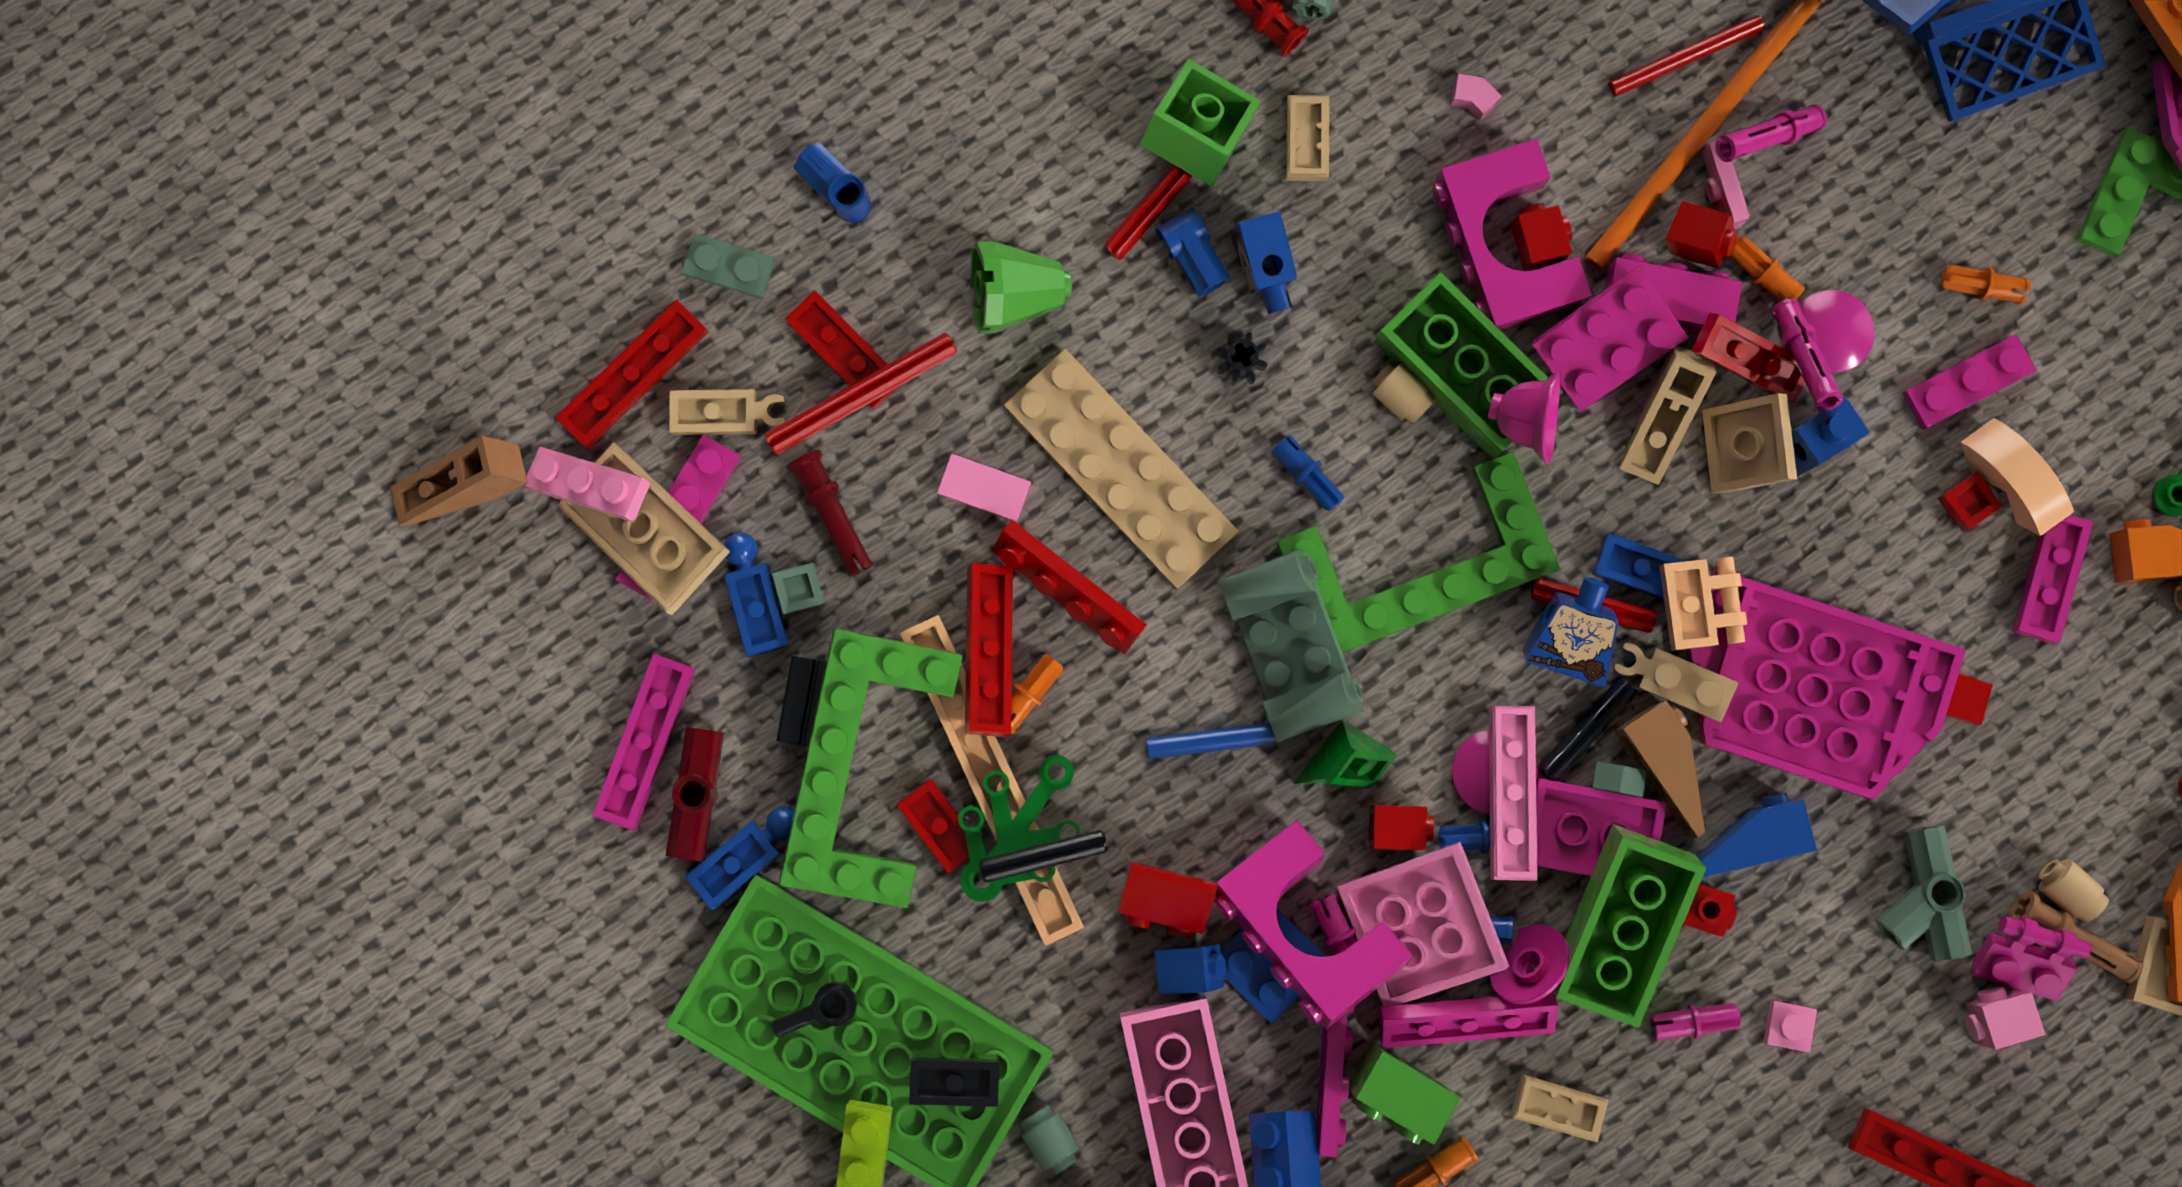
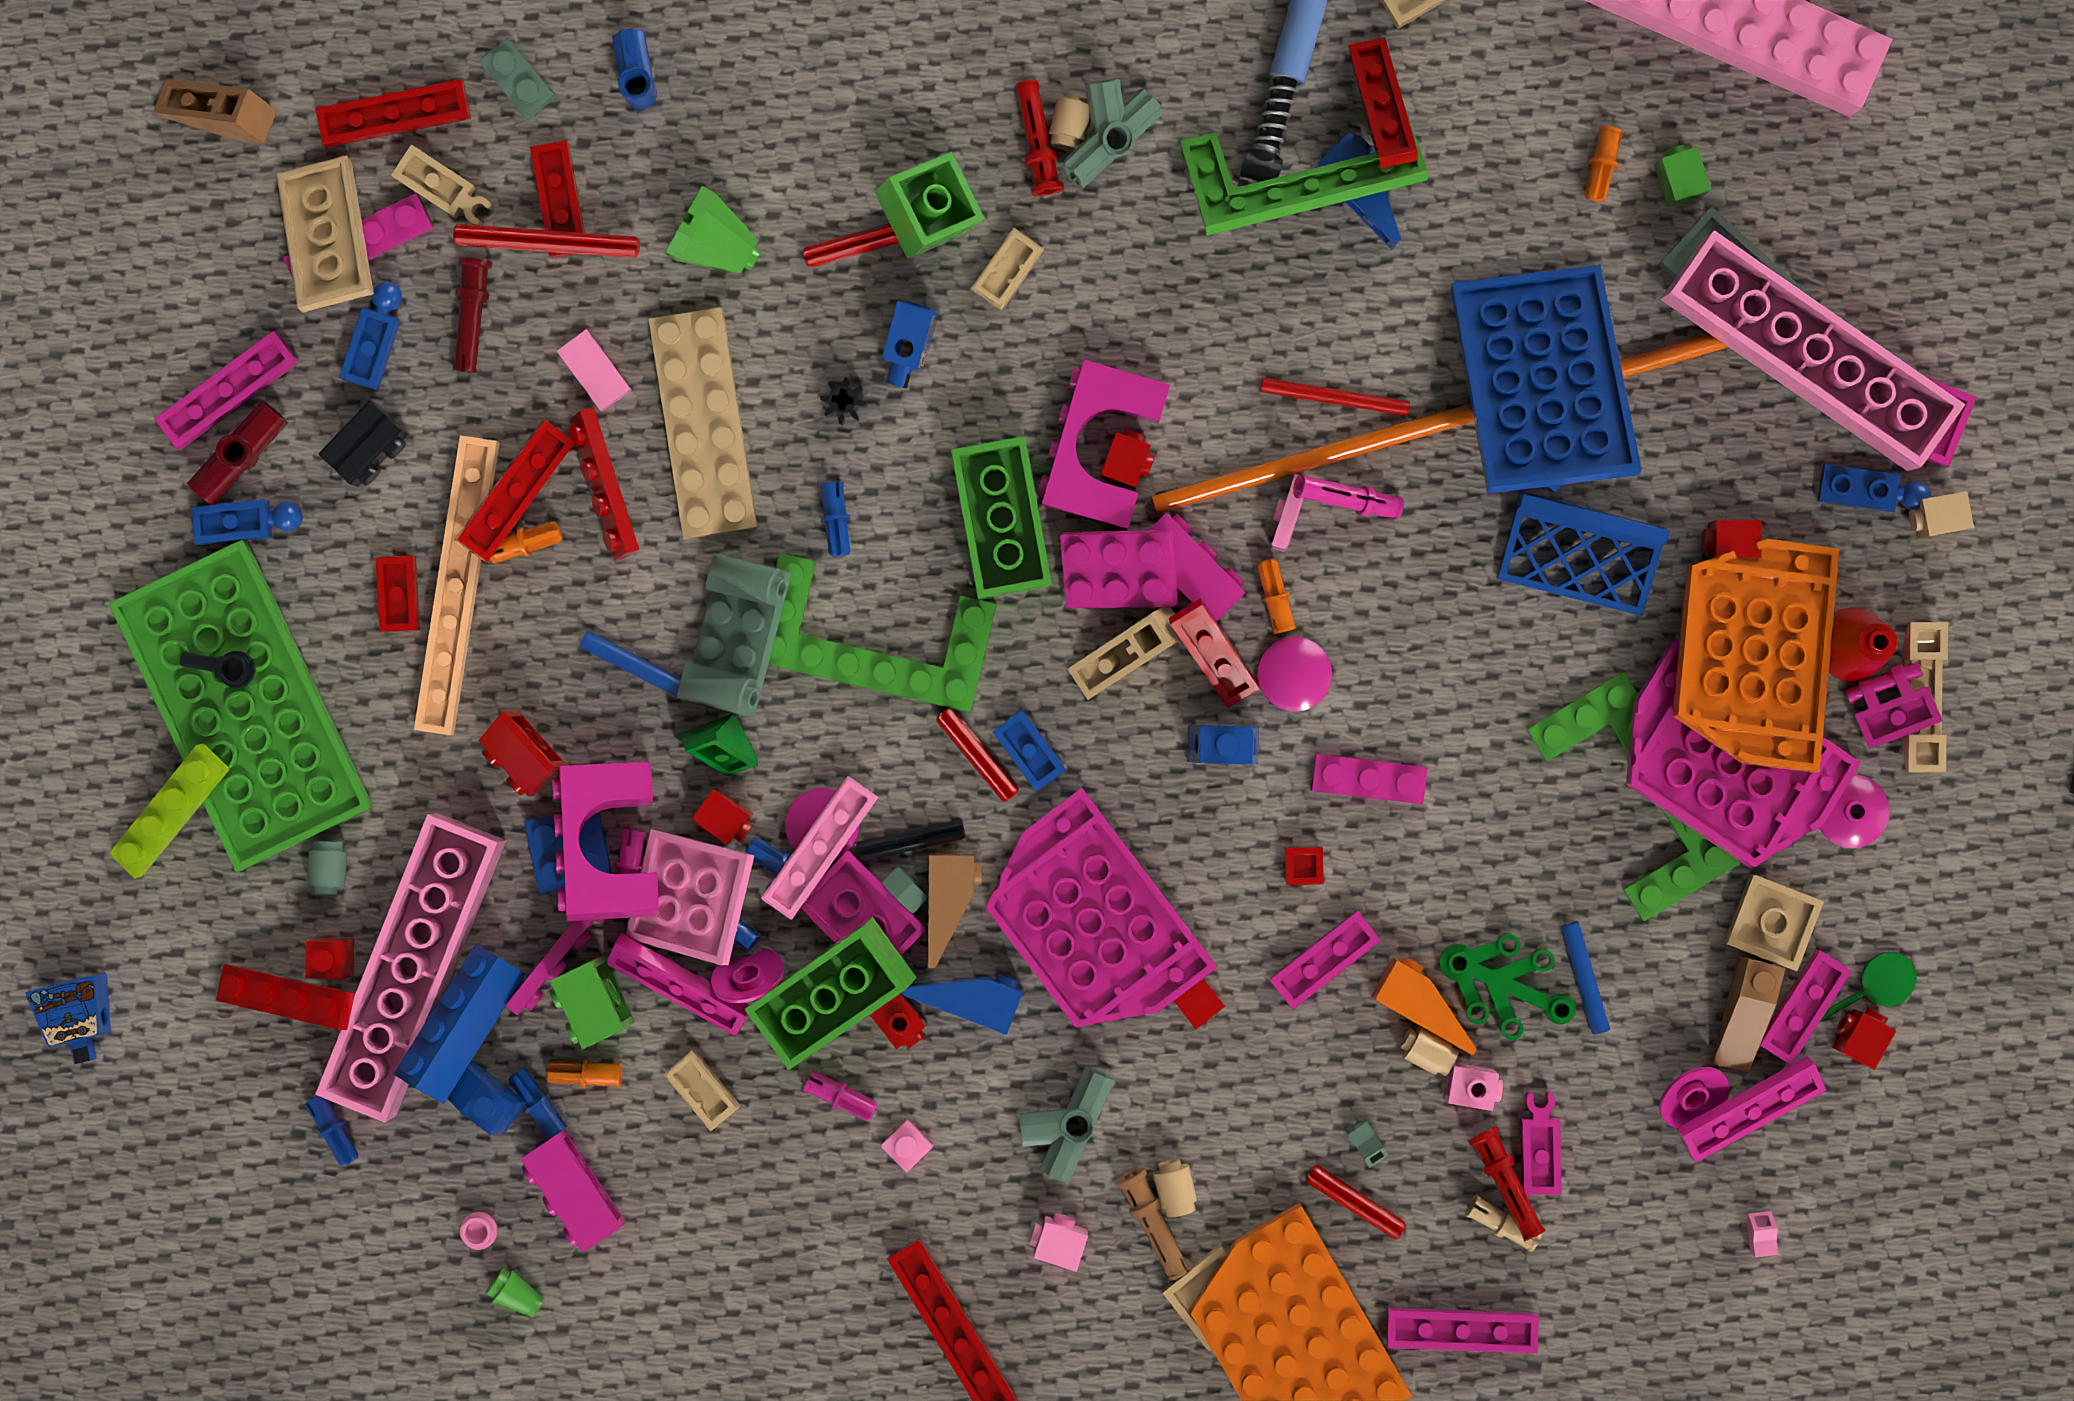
camera: 30 degrees right, 5 degrees up
(587, 484) = (305, 174): bright pink plate -> none
(797, 589) = (408, 353): sand green plate -> none
(809, 856) = (404, 435): bright green plate -> none
(954, 1082) = (283, 780): black plate -> none
(1012, 834) = (443, 635): green plant -> none
(1043, 856) = (450, 664): black axle -> none
(1190, 969) = (504, 815): blue brick -> none
(1191, 248) = (864, 291): blue piece -> none
(1402, 393) = (943, 506): tan brick -> none
(1475, 95) = (1154, 319): bright pink piece -> none
(1529, 414) = (1010, 586): dark pink hat -> none
(1575, 634) = (943, 766): torso -> none
(1681, 682) = (998, 851): tan plate -> none
(1691, 607) = (1040, 798): light nougat plate -> none
(1701, 235) = (1243, 537): red brick -> none
(1749, 443) = (1167, 714): tan plate -> none
(1801, 341) = (1266, 644): dark pink pin -> none
(1985, 283) = (1431, 715): orange axle -> none
(2020, 471) = (1347, 869): light nougat brick -> none
(2027, 967) = (1108, 1213): dark pink plate -> none

